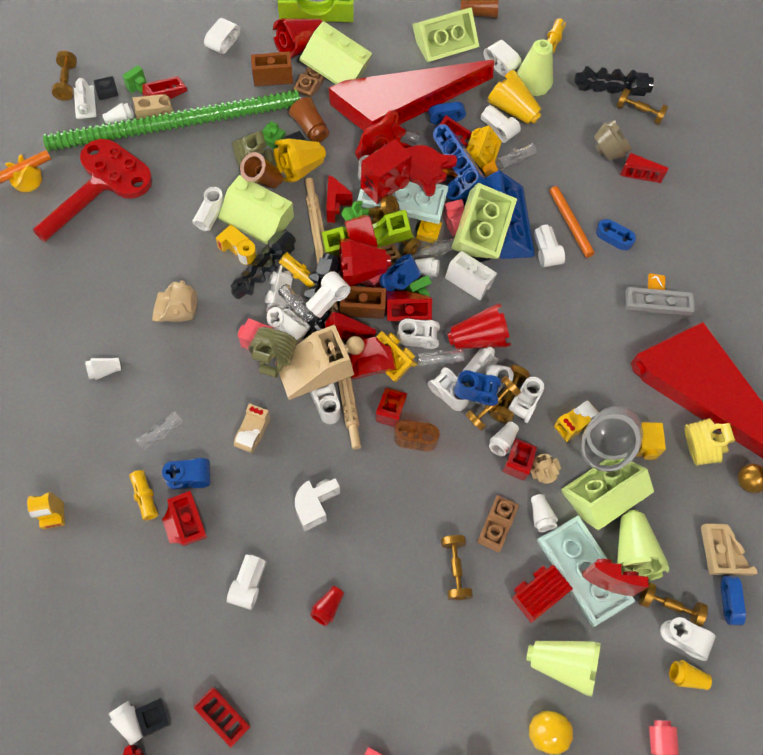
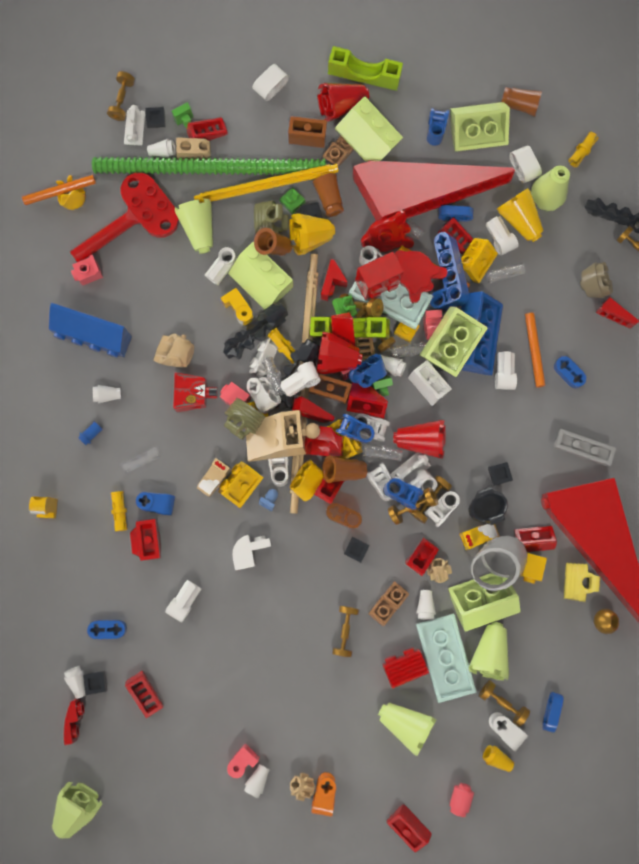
camera: 15 degrees right, 15 degrees up
(56, 245) = (90, 275): none -> coral brick
(69, 301) = (88, 330): none -> blue slope
(91, 414) = (90, 433): none -> blue pin
(153, 638) = (106, 634): none -> blue beam
(172, 171) = (197, 223): none -> yellowish green cone
(204, 343) = (191, 392): none -> red torso
(236, 124) = (267, 183): none -> yellow piece
(285, 429) = (240, 484): none -> yellow bracket
(323, 440) = (269, 499): none -> medium blue piece
(325, 609) = (239, 635): red cone -> none
(363, 405) = (307, 480): none -> yellow beam
(400, 382) = (343, 469): none -> dark orange plant
(403, 43) = (437, 124): none -> blue piece
(403, 333) = (354, 429): none -> blue piece
(442, 470) = (356, 549): none -> black plate
(490, 168) = (478, 283): light orange sticker -> none
(503, 440) = (414, 536): white cone -> none
(551, 732) = (380, 770): yellow hair -> none
(576, 384) = (488, 506): none -> black piece
(578, 350) = (500, 474): none -> black plate
(609, 577) = (456, 669): red slope -> none
(648, 407) = (537, 538): none -> red slope
(656, 281) = (591, 426): light orange sticker -> none
(723, 552) = (560, 673): tan wing -> none

